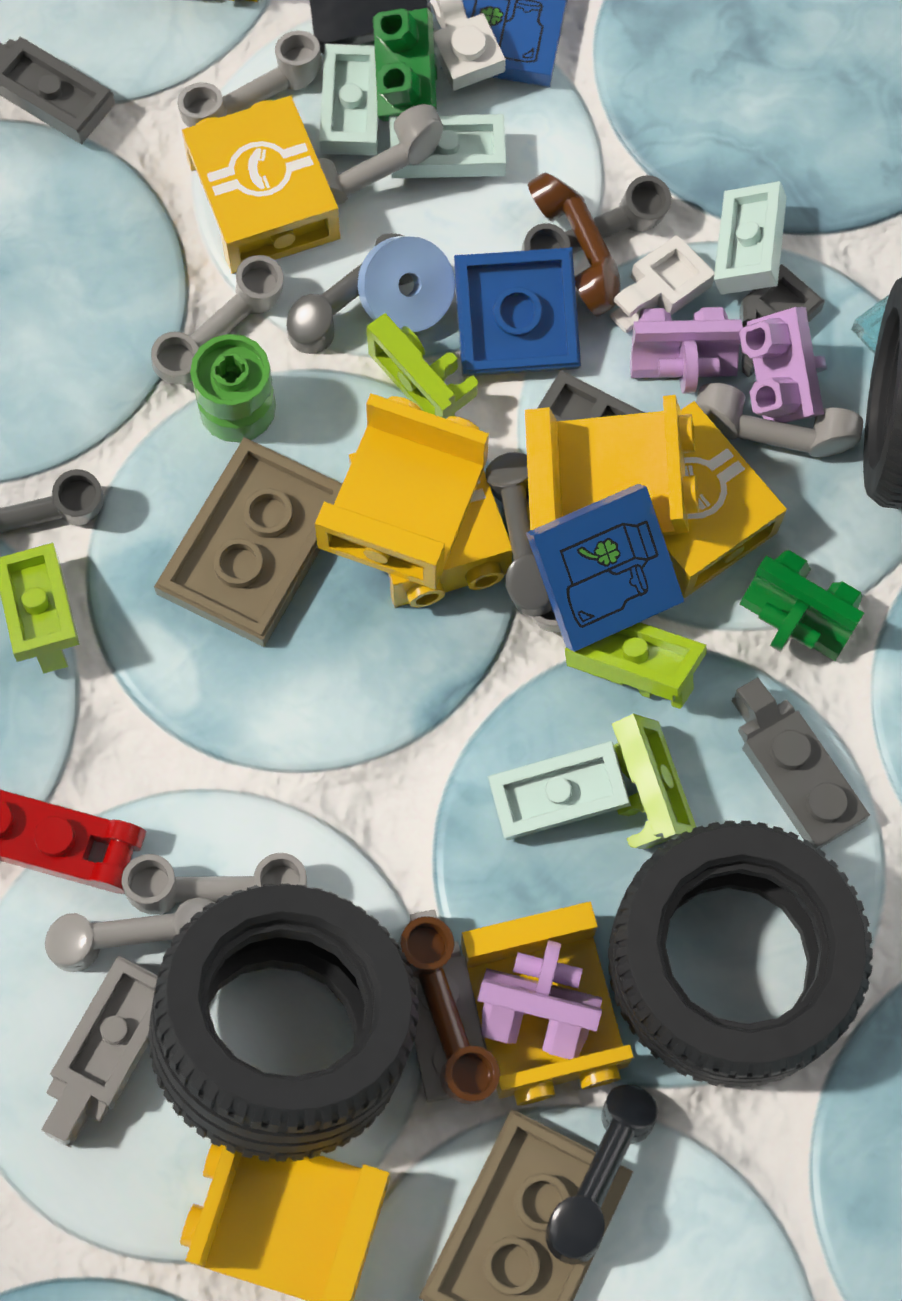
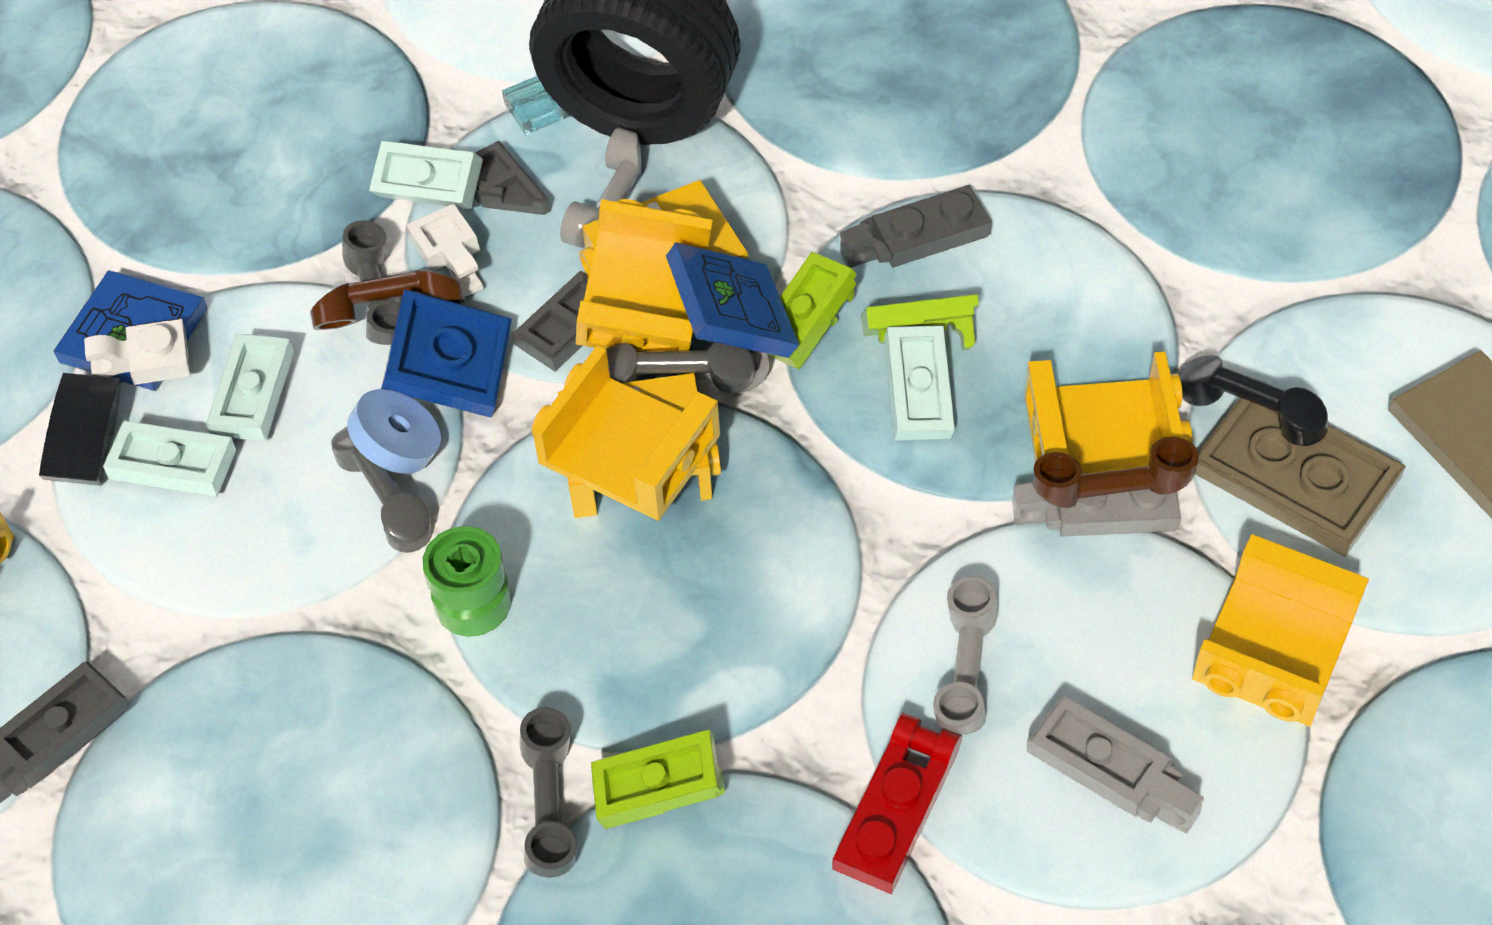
camera: 75 degrees left, 15 degrees down
(75, 942) = (1005, 780): light grey bar -> none
(249, 543) = (622, 599): dark tan tile -> none
(257, 291) = (353, 565): light grey bar -> none
(263, 182) = (238, 533): yellow panel -> none
(296, 932) = (1132, 648): black tyre -> none
(298, 65) = (113, 504): light grey bar -> none
(401, 358) = (485, 440): lime plate -> none
(404, 61) = (158, 395): green hips -> none
(418, 133) = (258, 490): light grey bar -> none
(569, 1011) = (1103, 411): lavender hips -> none
(685, 348) = (521, 237): lavender hips -> none
(783, 366) = (561, 167): lavender hips -> none
(802, 608) = (784, 195): green hips -> none
(815, 902) = (1096, 214): black tyre -> none

